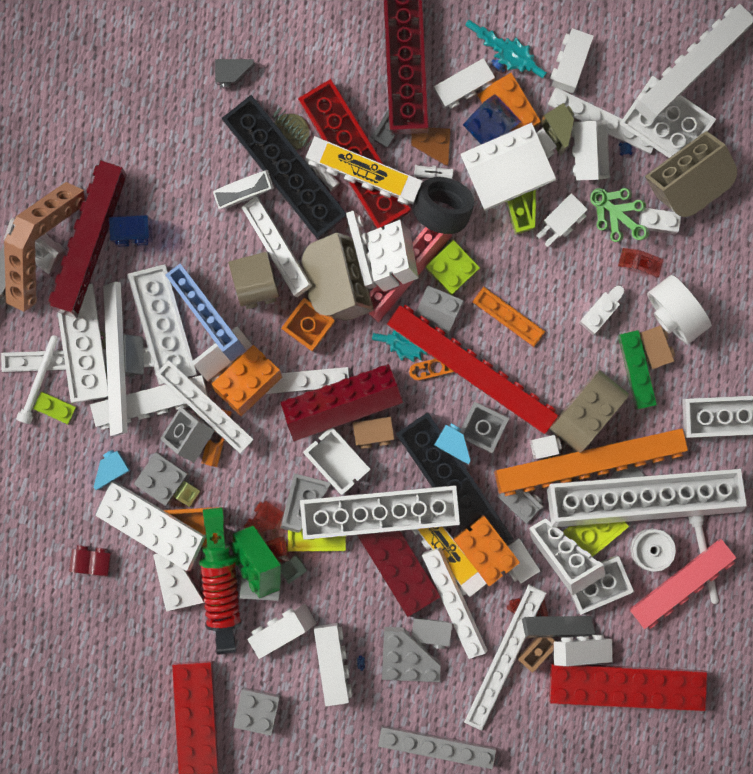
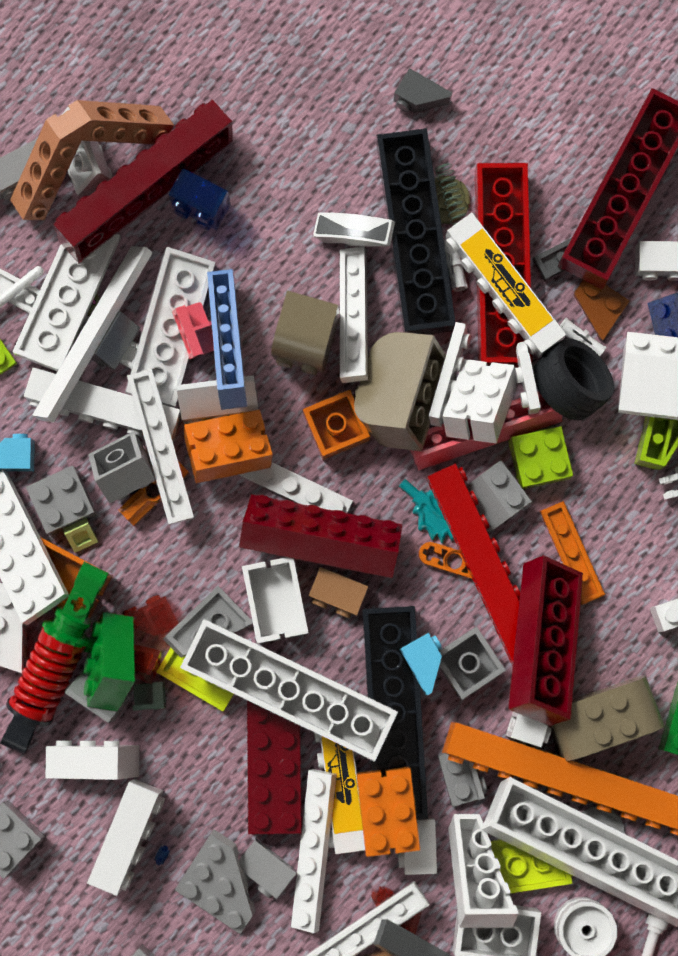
camera: 25 degrees right, 5 degrees down
(179, 317) = (194, 329): none -> coral panel
(410, 222) = (525, 375): none -> white hinge
(523, 384) = (546, 641): none -> dark red brick

